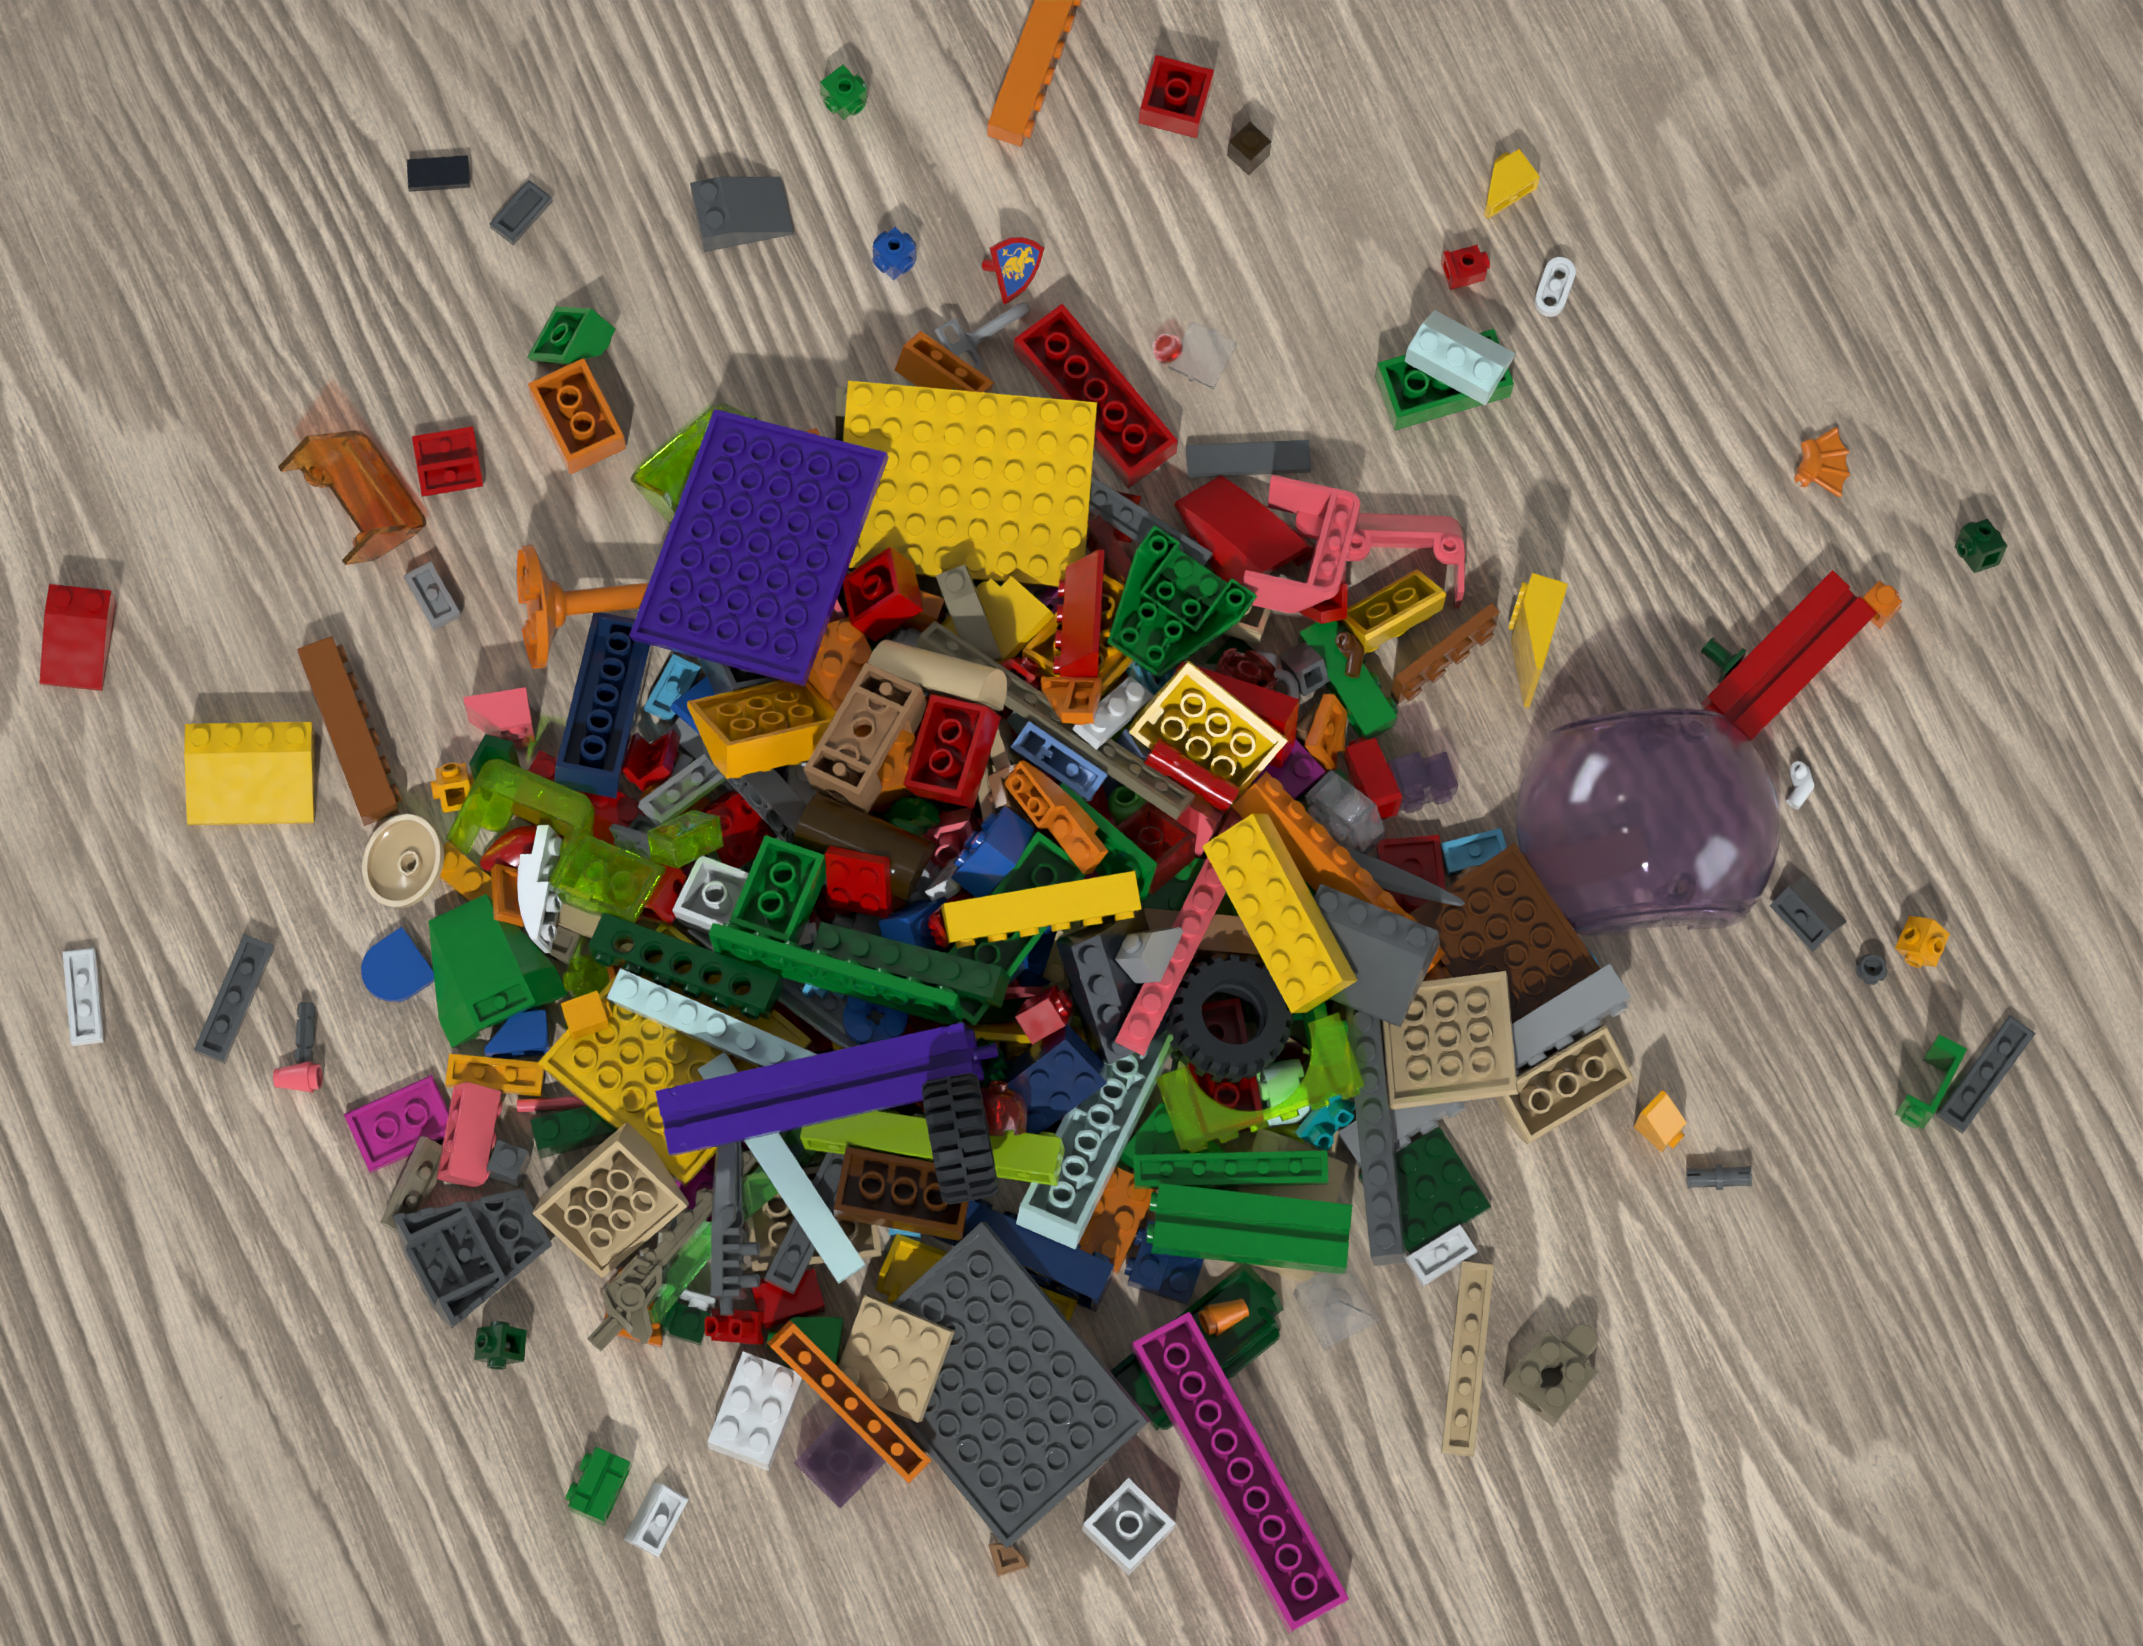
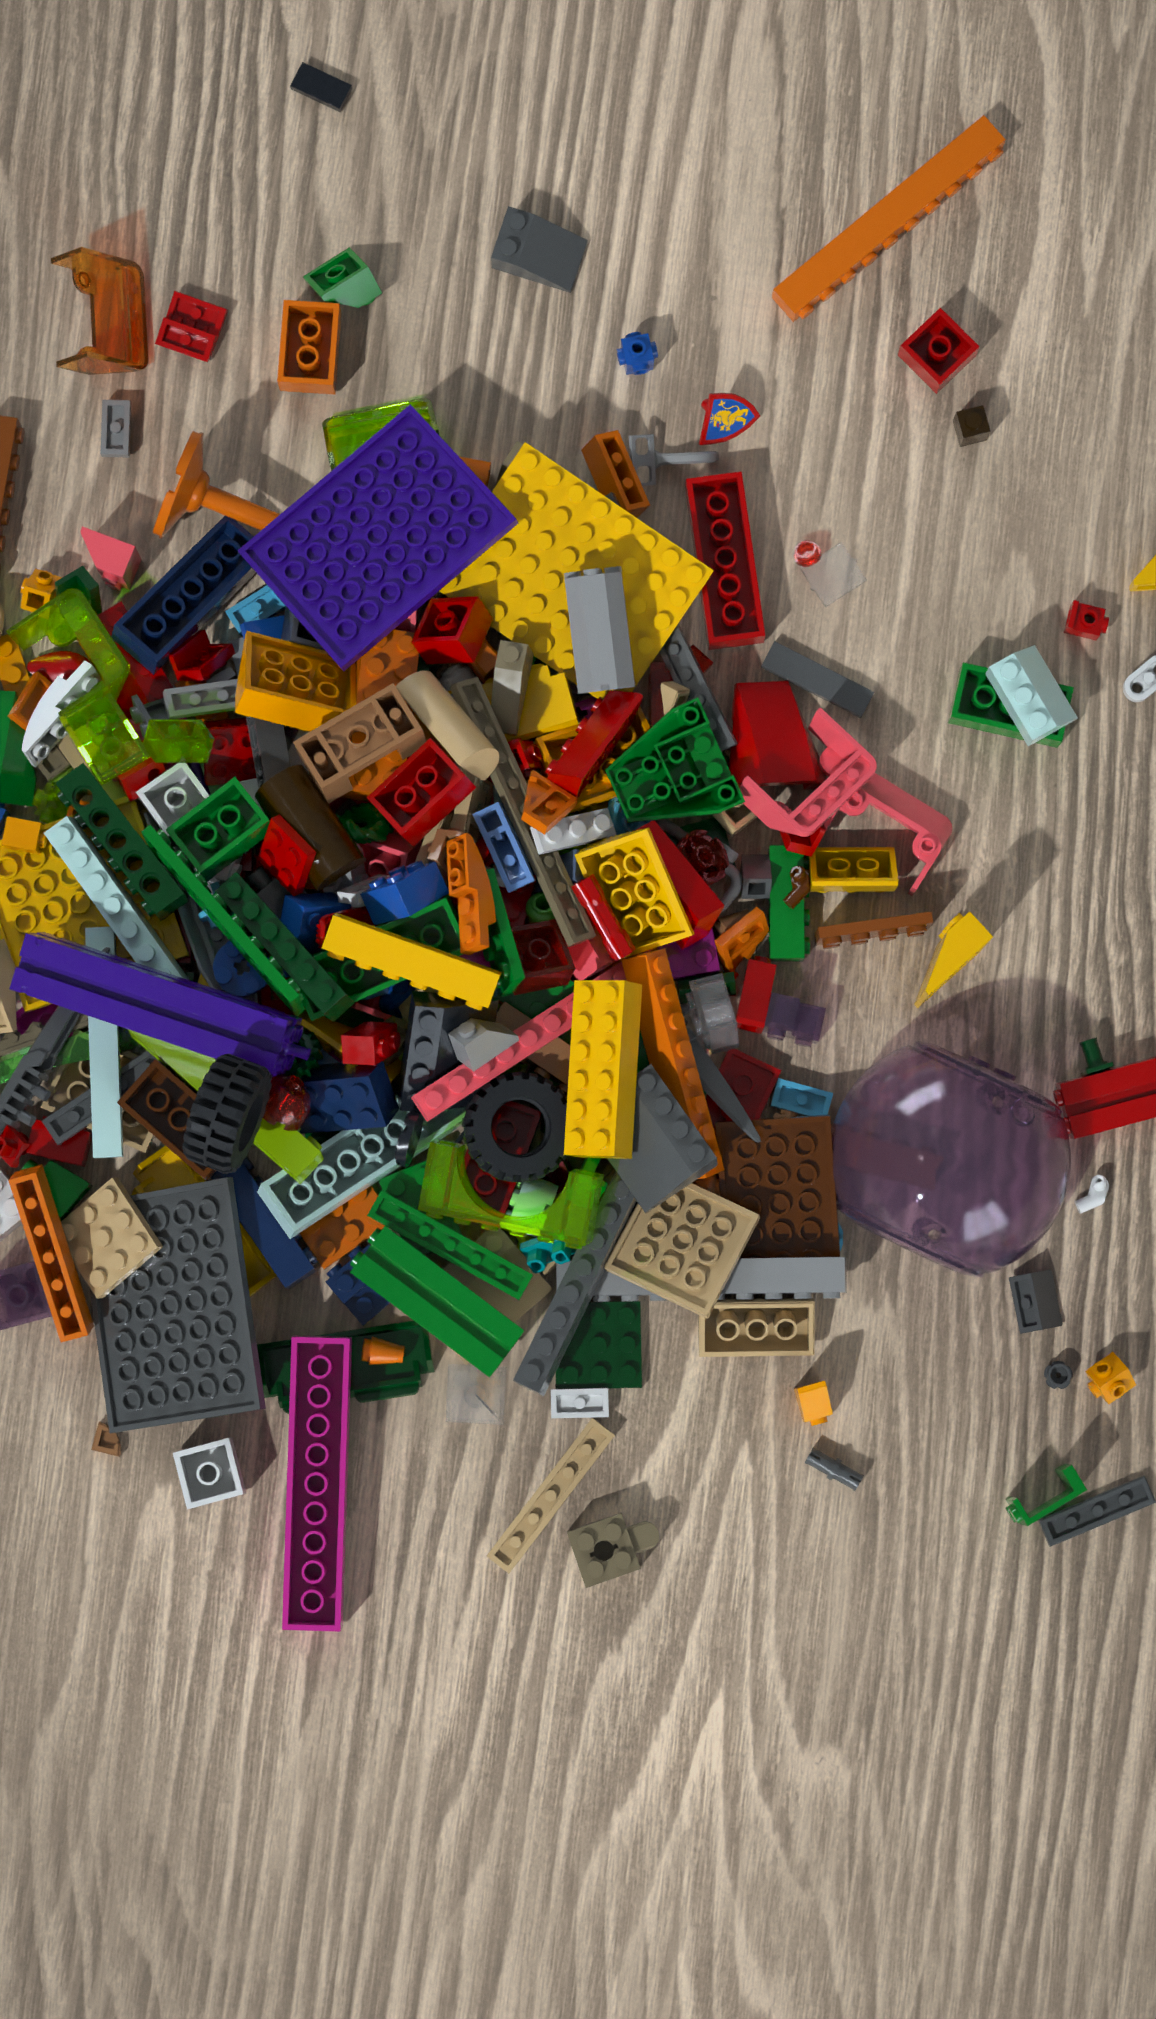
camera: 35 degrees right, 10 degrees up
(521, 212) = (367, 155): dark grey tile -> none
(843, 92) = (675, 199): green brick -> none
(1025, 513) = (599, 629): none -> light grey brick
(1127, 541) = (673, 695): none -> tan slope
(1133, 1084) = (409, 1138): none -> black tile

